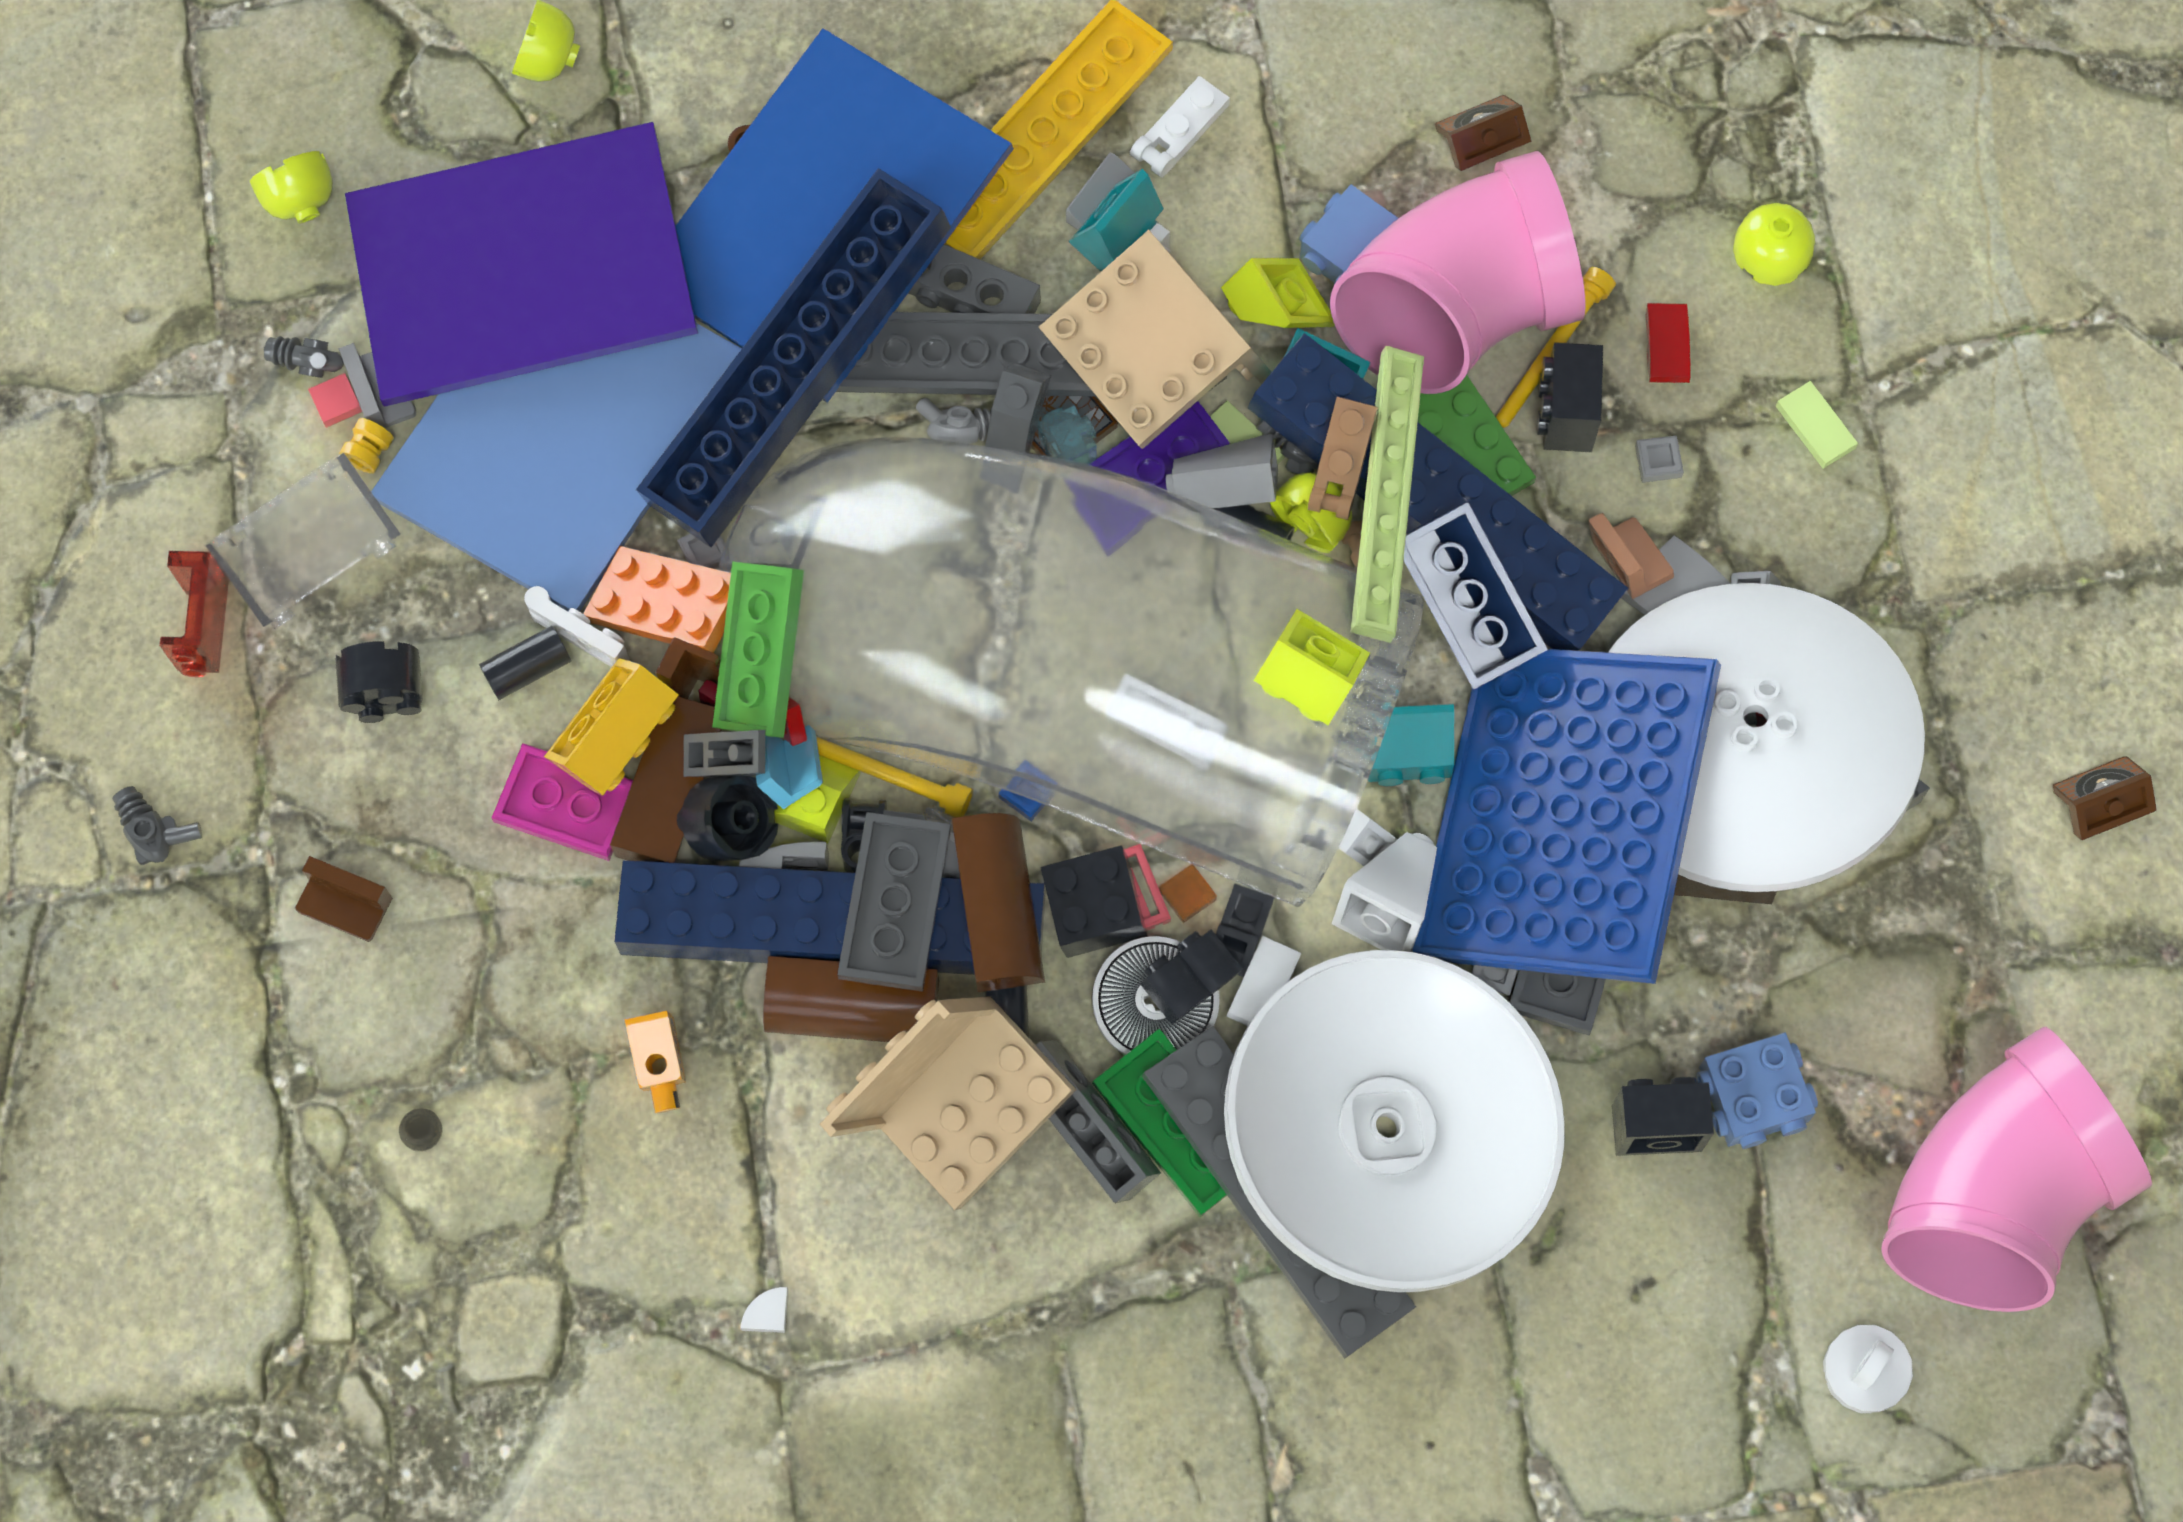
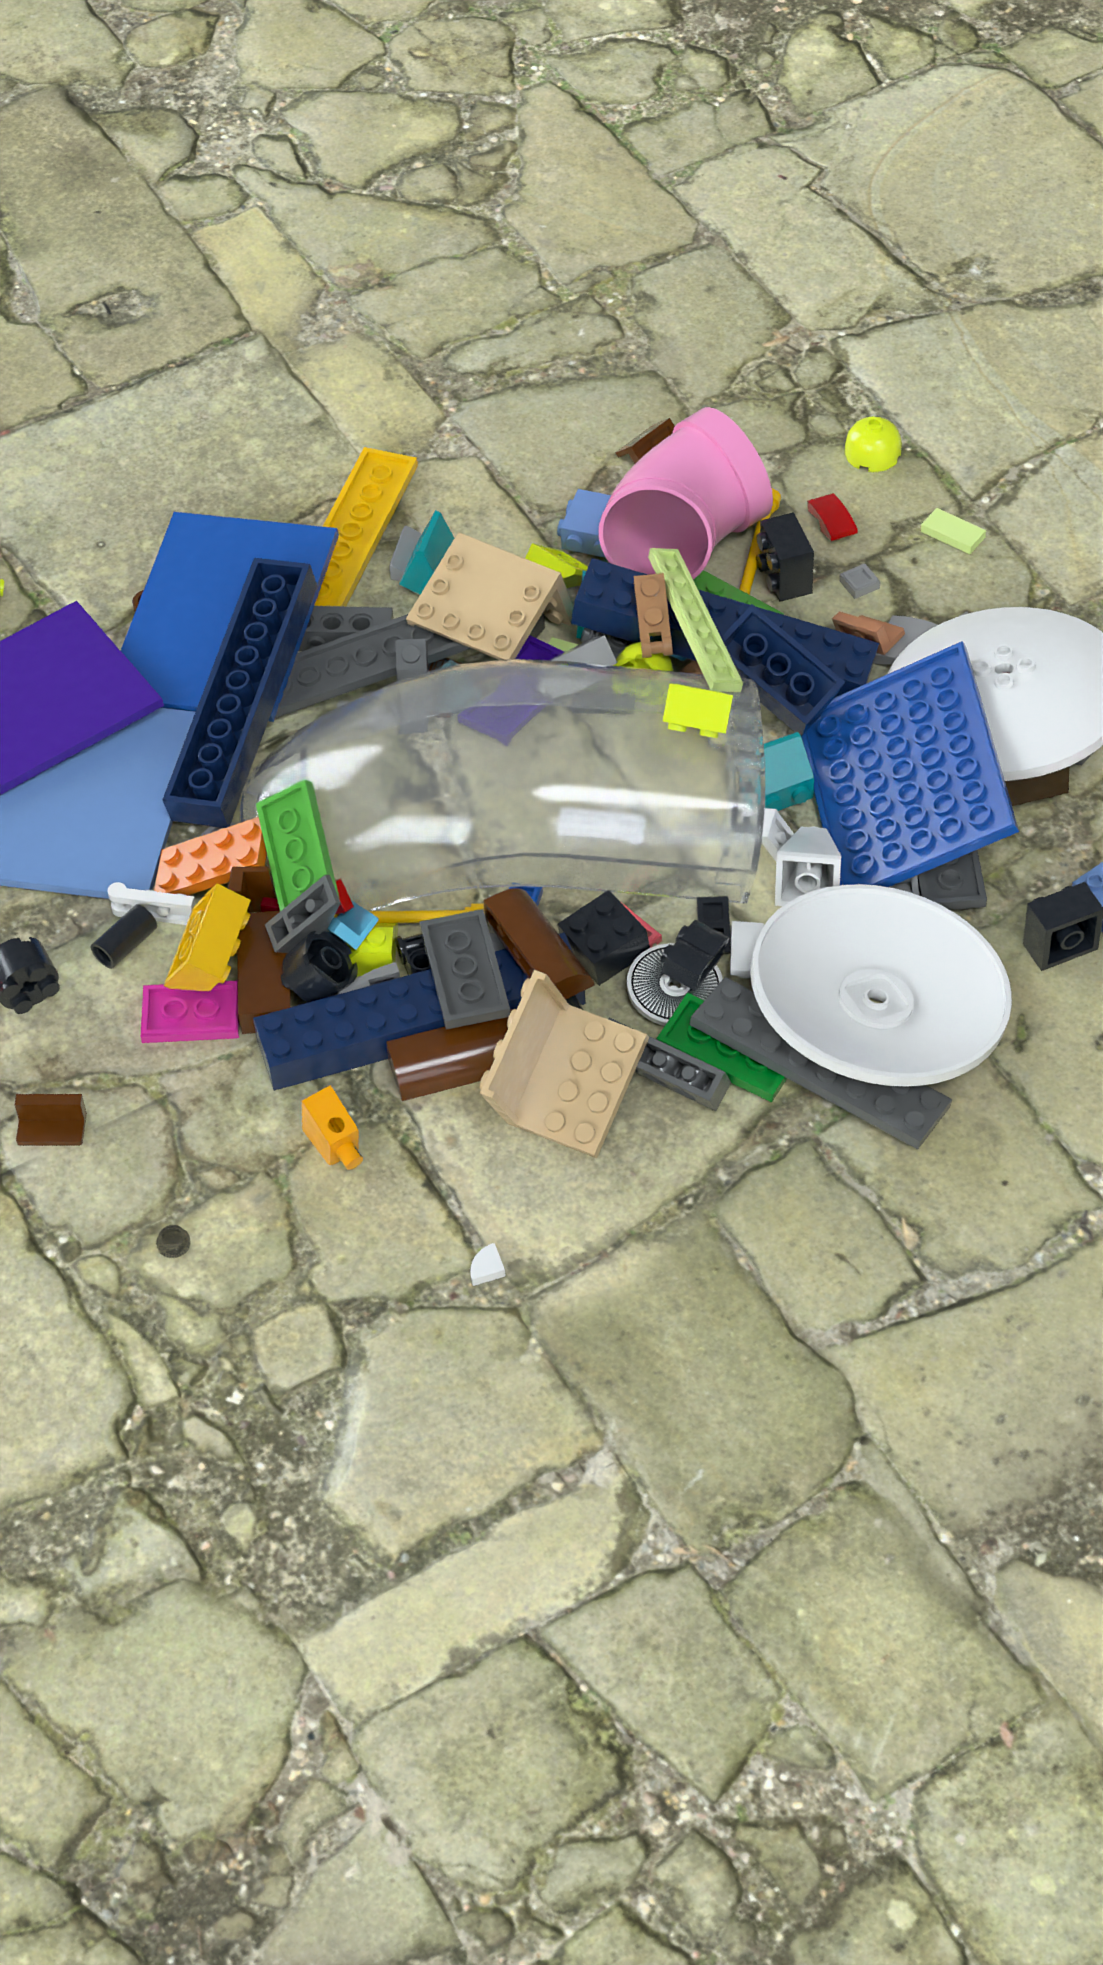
camera: 20 degrees left, 20 degrees down
(1180, 126) = (446, 499): white plate -> none
(1187, 893) = (666, 918): clear orange tile -> none

